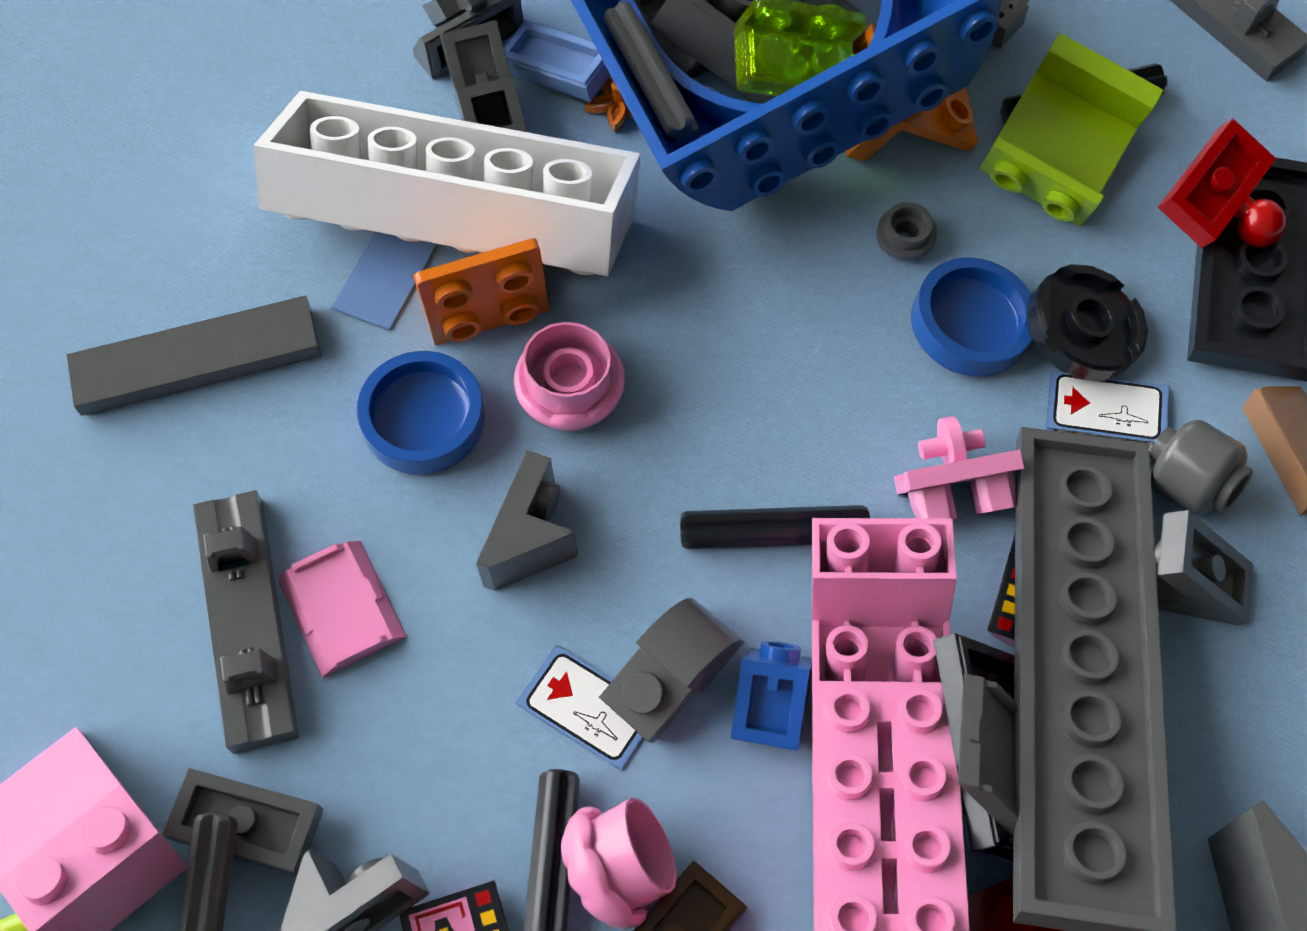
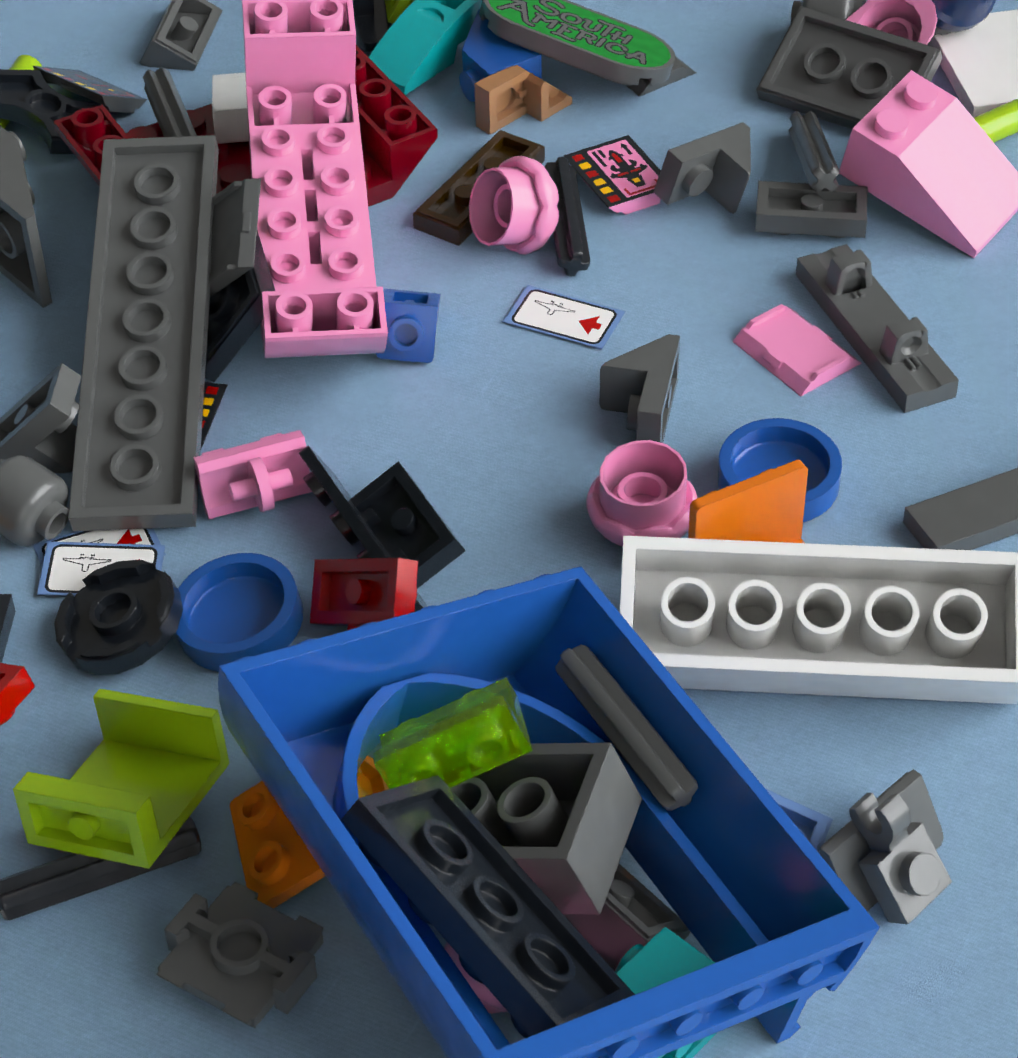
camera: 170 degrees right, 20 degrees down
(482, 77) = (822, 754): dark grey brick -> none
(674, 661) = (489, 321): dark grey brick -> none
(758, 526) = (422, 432): black axle -> none
(826, 381) = (387, 518): none -> black bracket
(857, 268) = (362, 590): none -> red plate

